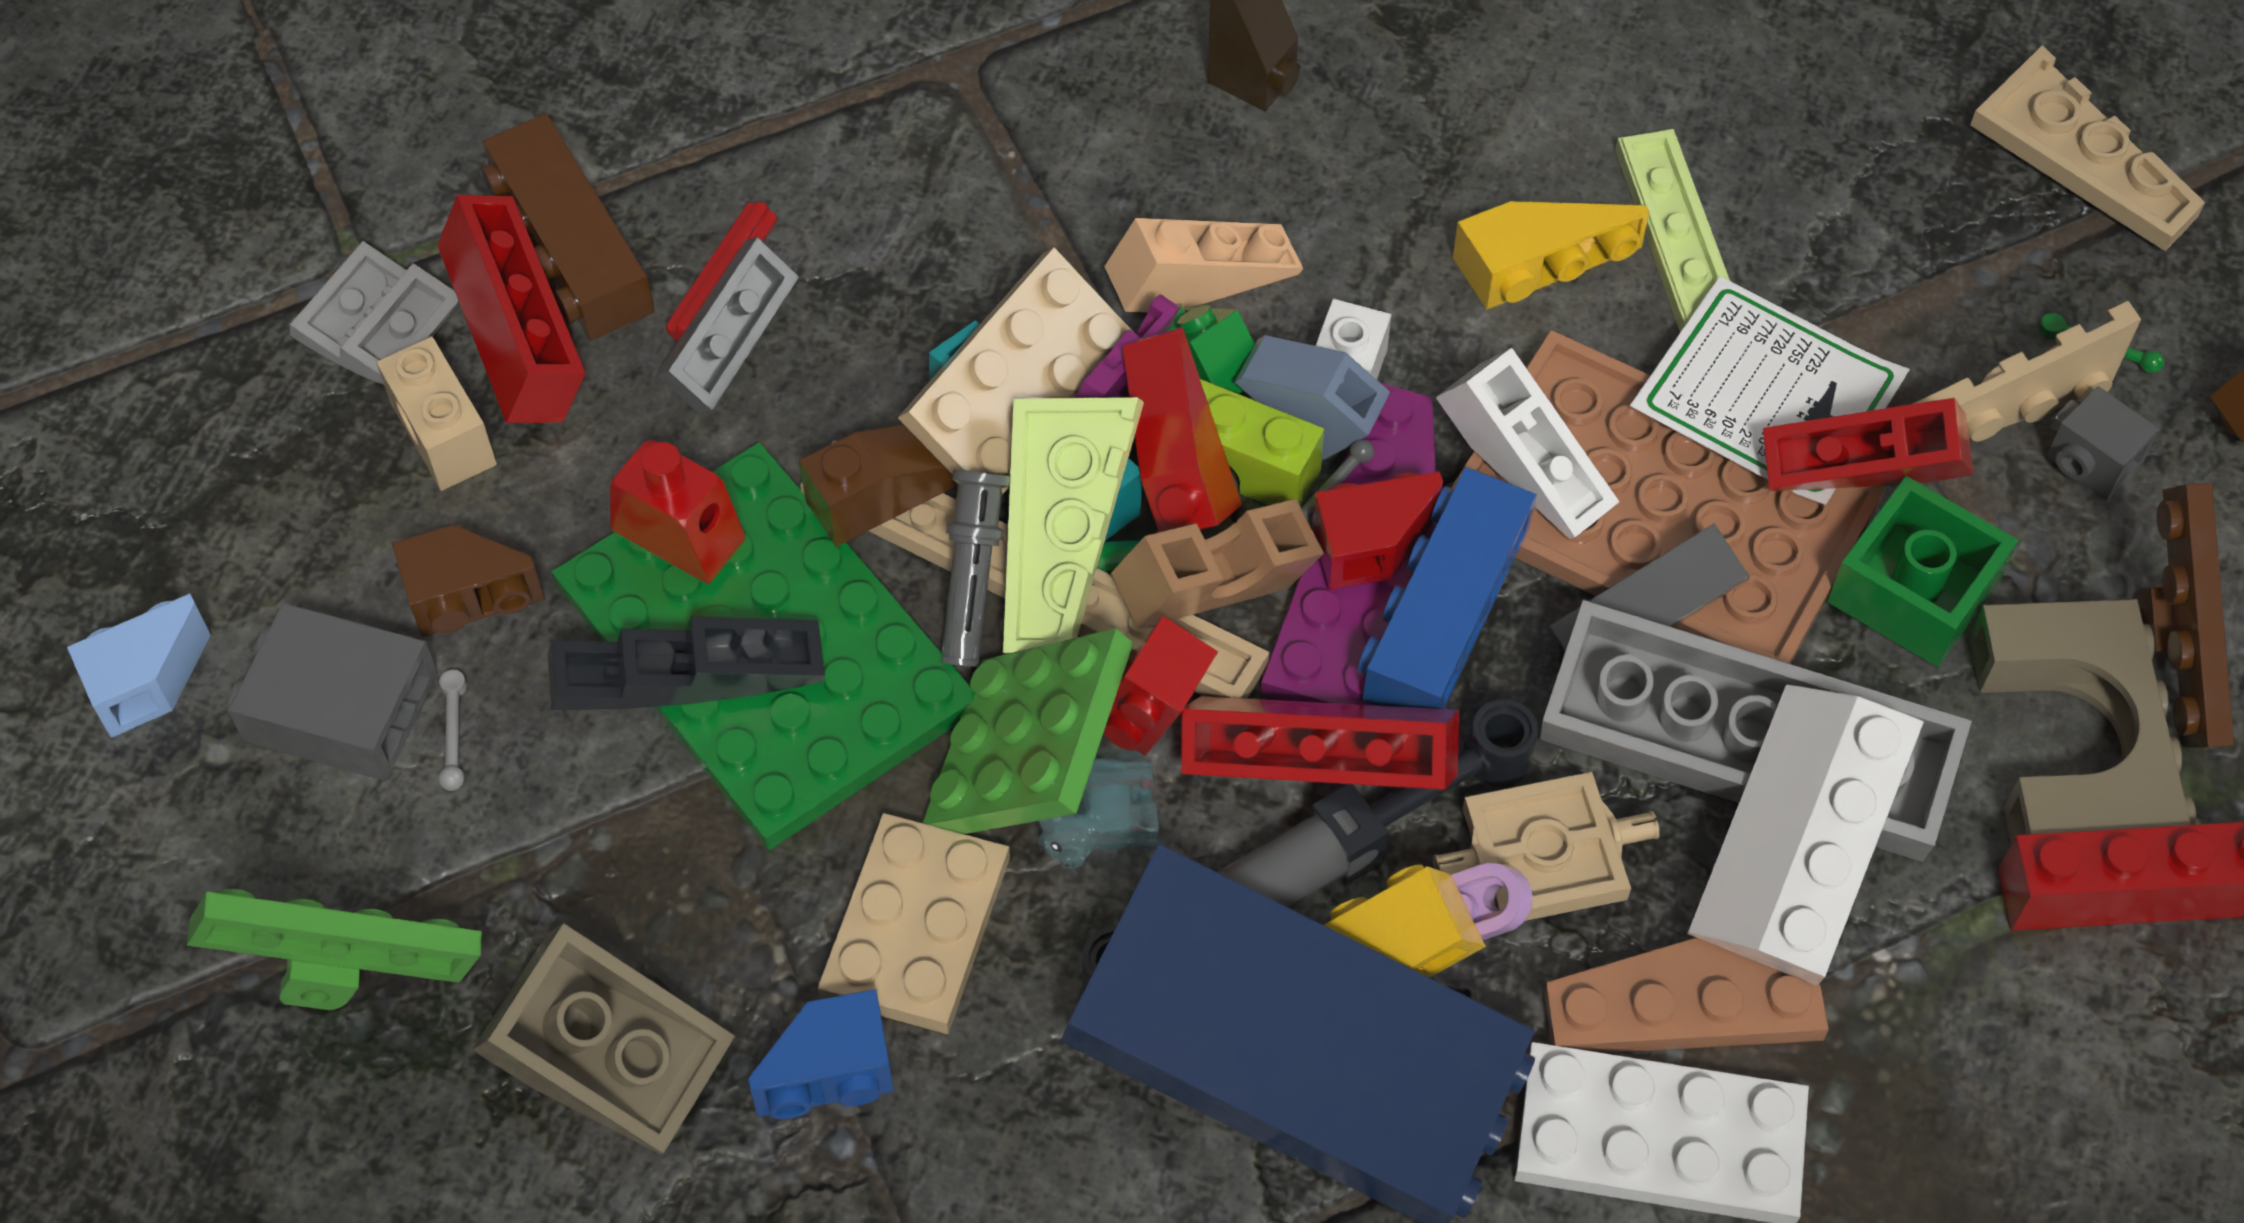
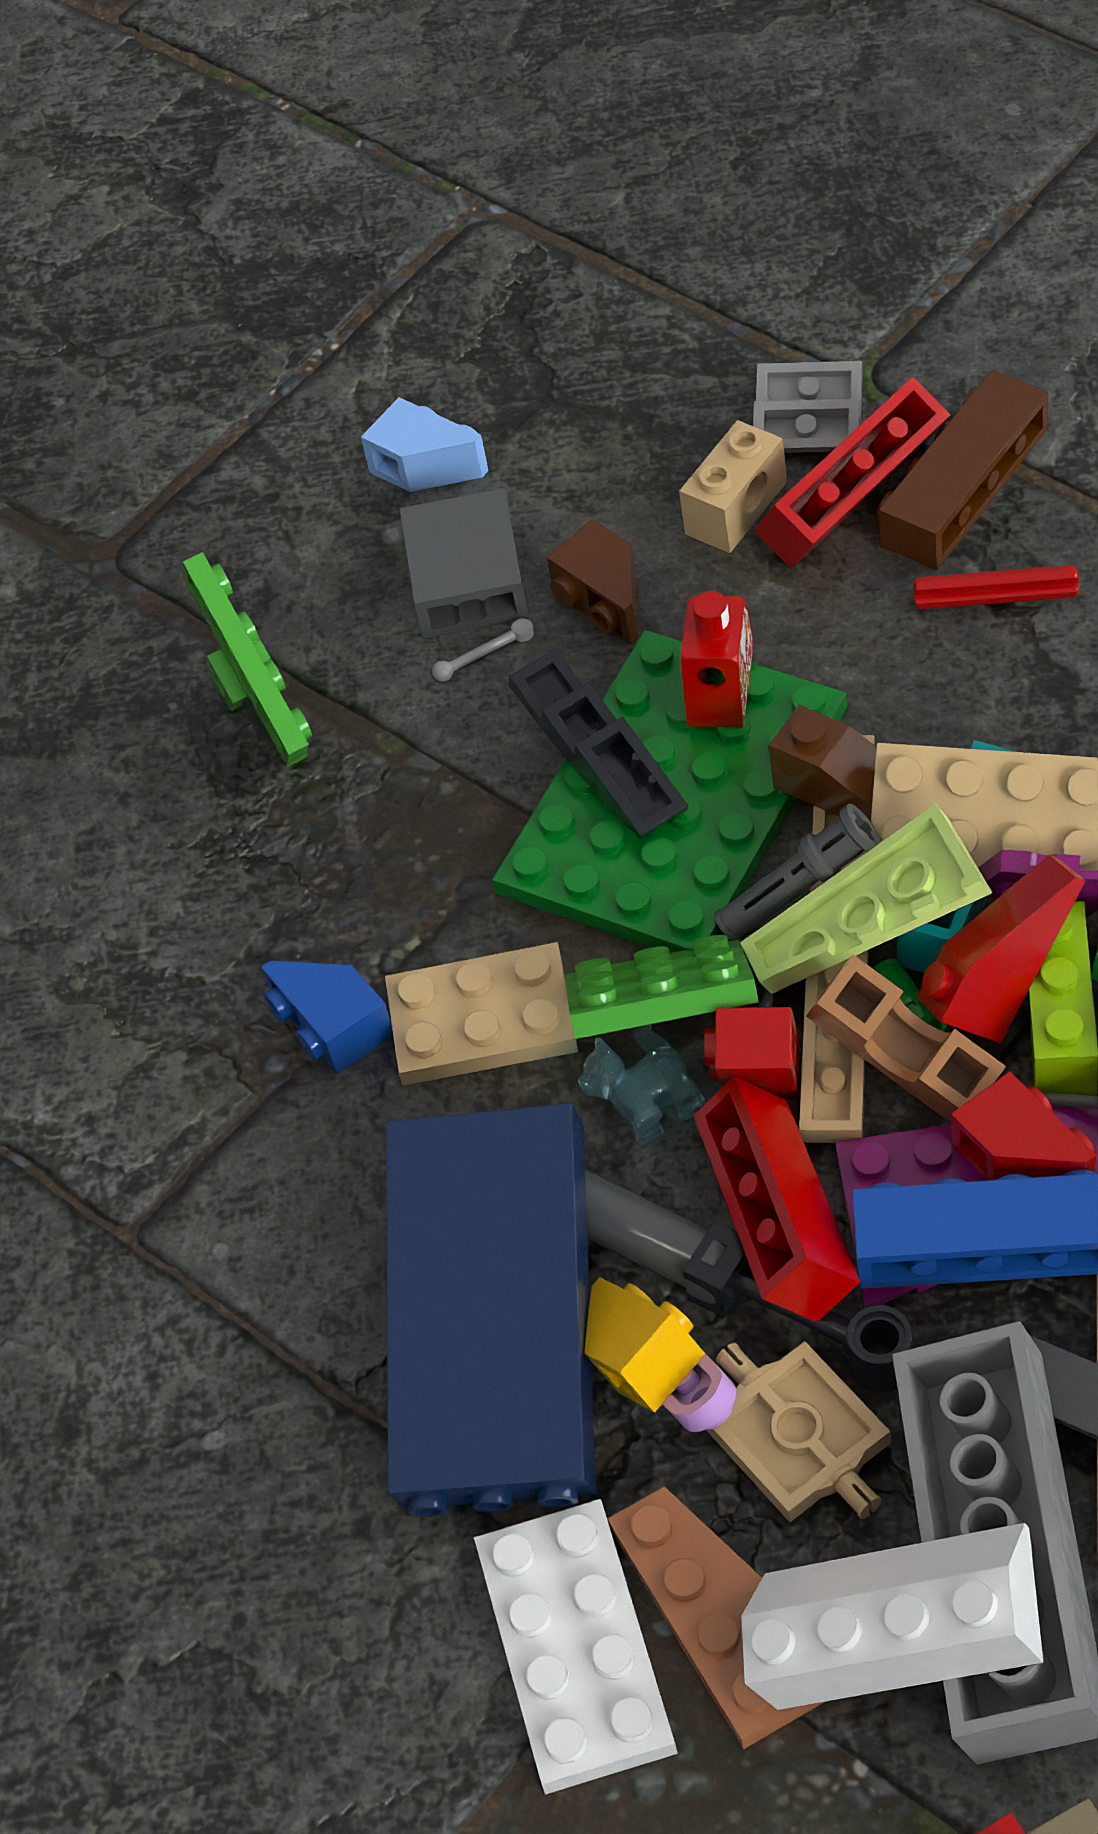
camera: 75 degrees right, 5 degrees down
(604, 1040) = (270, 864): dark tan slope -> none
(727, 326) = (942, 614): plate -> none

